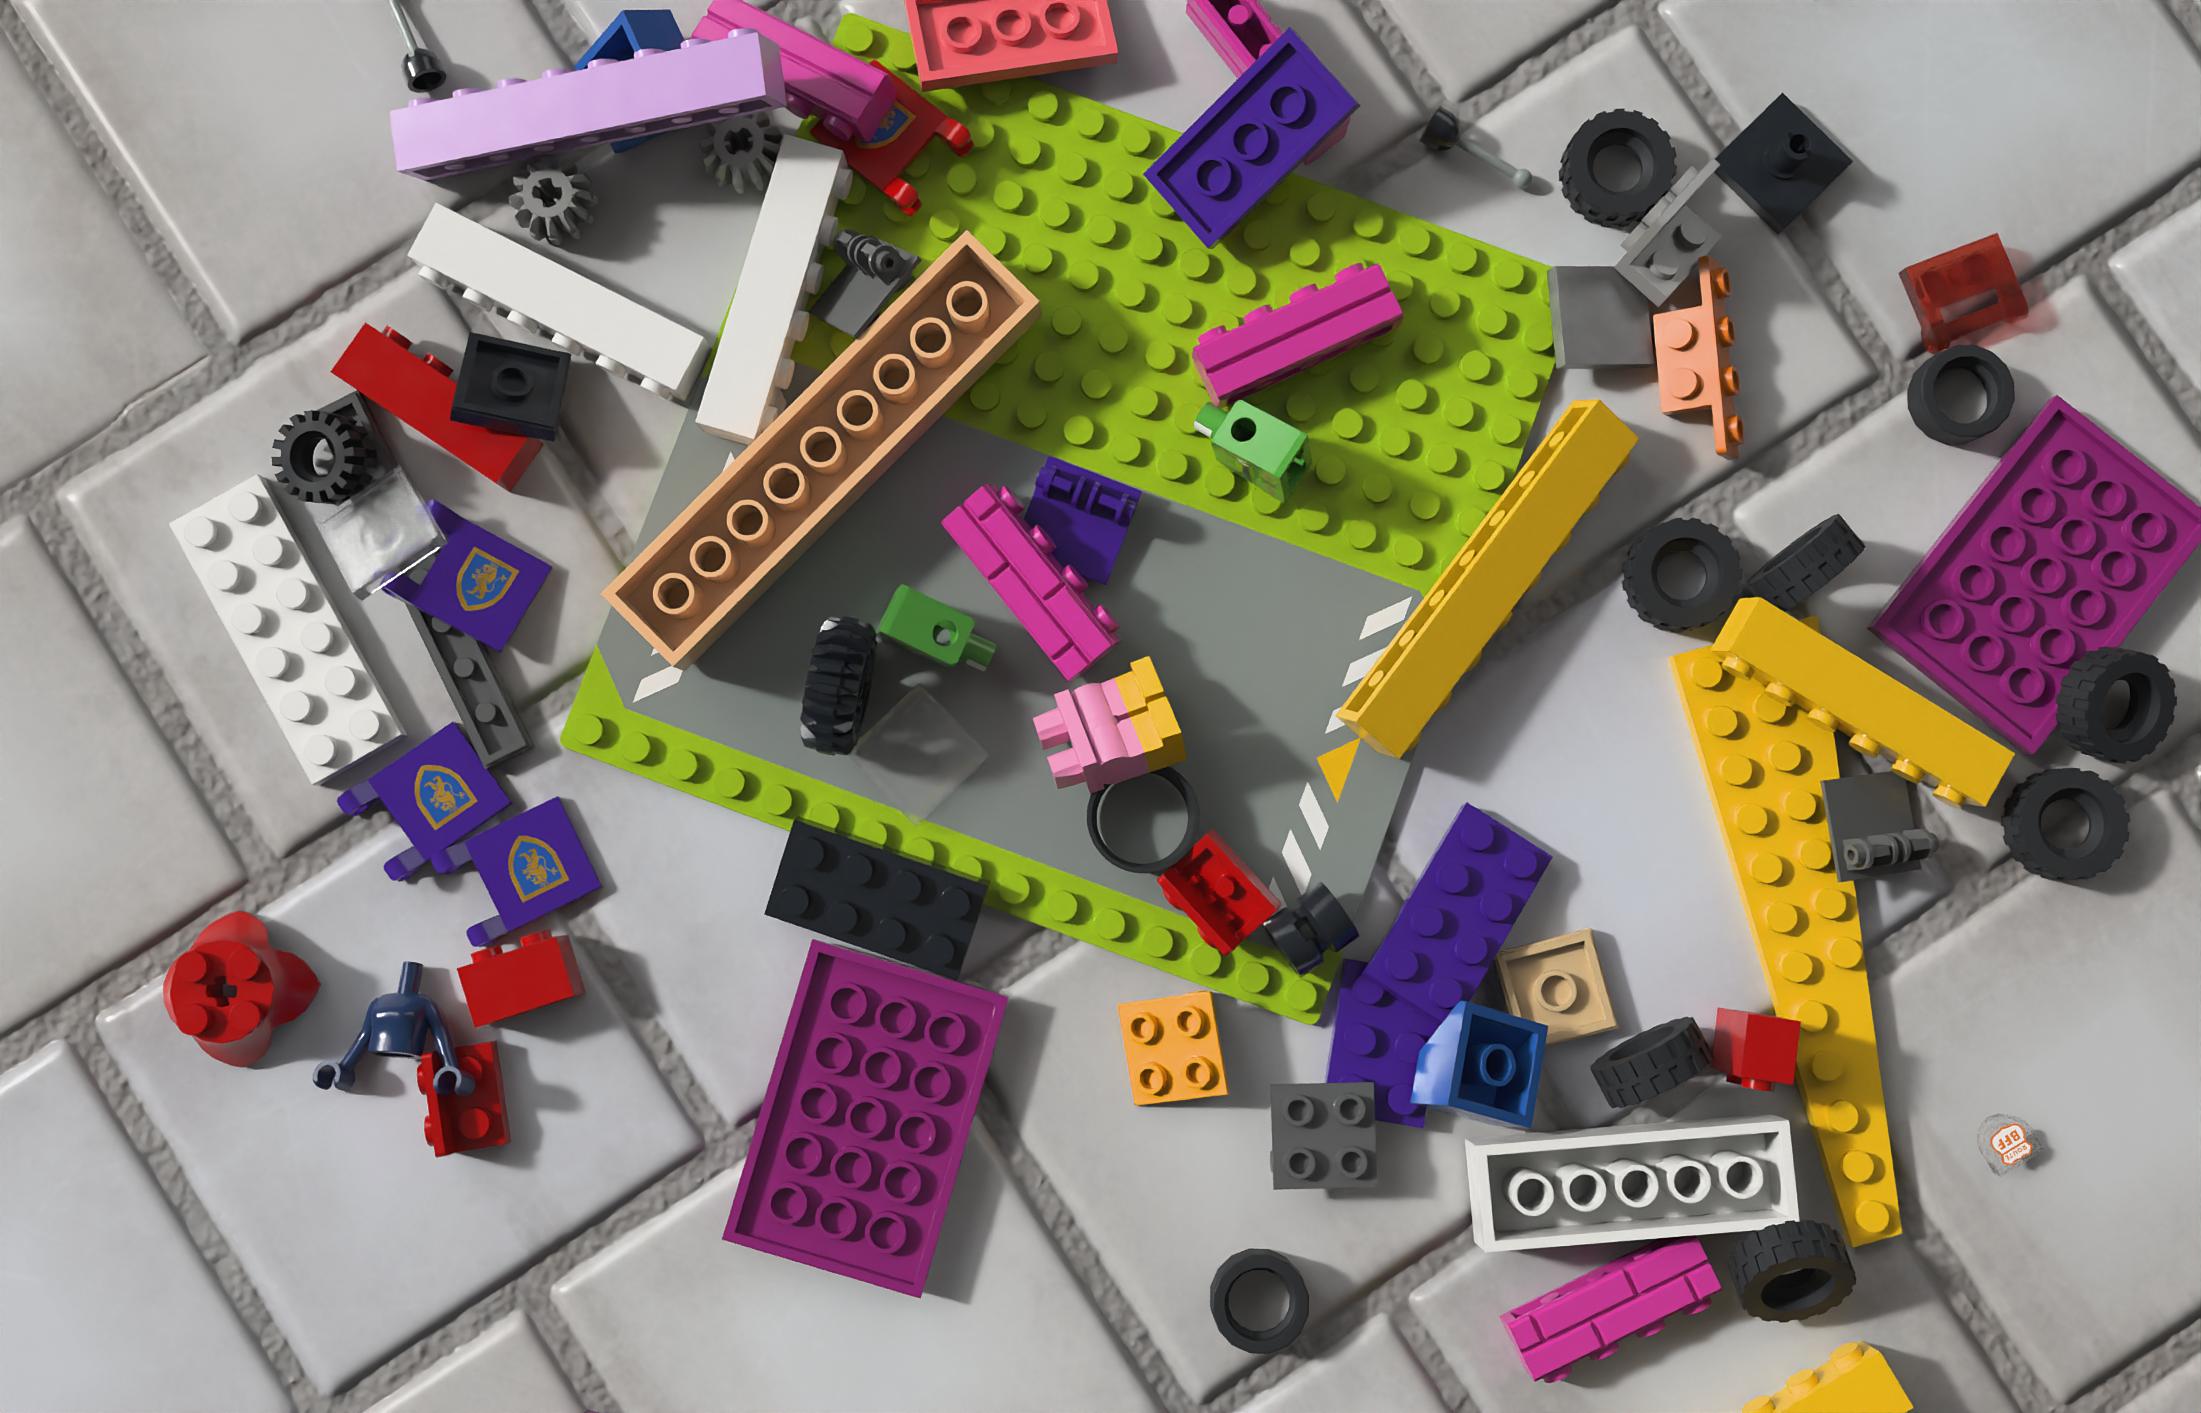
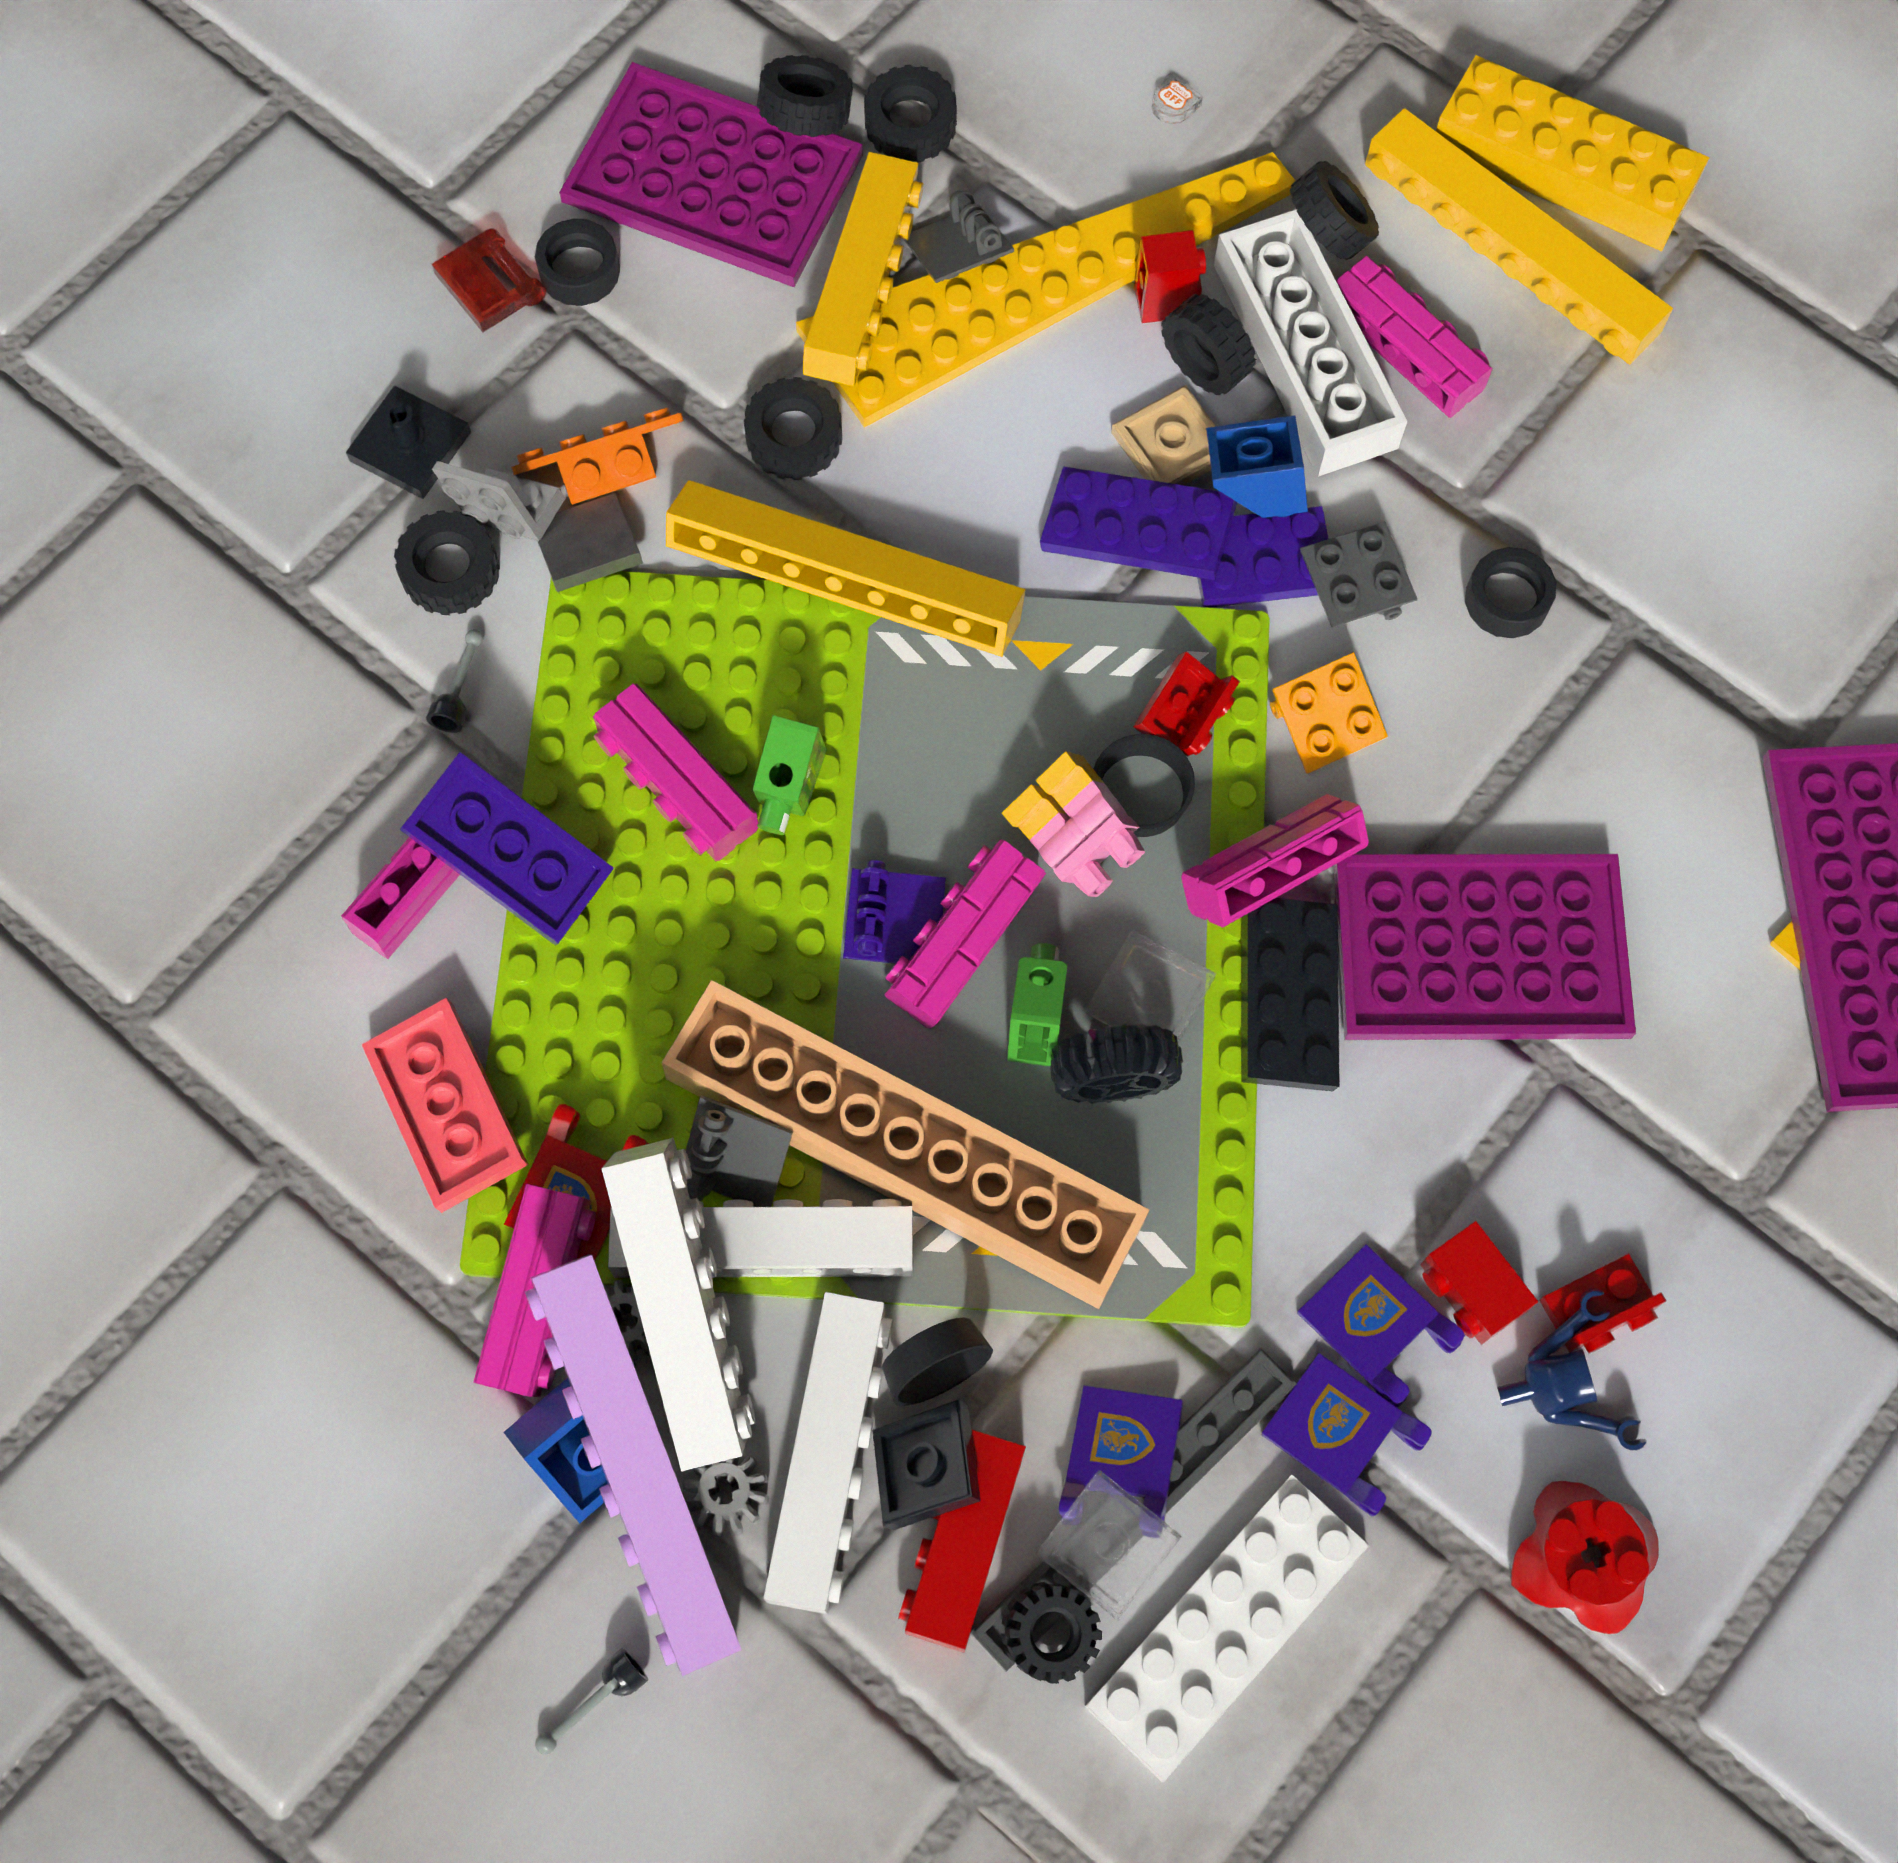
camera: 105 degrees left, 15 degrees down
(602, 422) = (935, 1361): none -> black tyre
(718, 179) = (678, 1303): none -> white brick
(1012, 924) = (1274, 860): none -> dark pink brick
(1326, 920) = (1180, 614): black wheel -> none
(1807, 564) = (760, 330): black tyre -> none

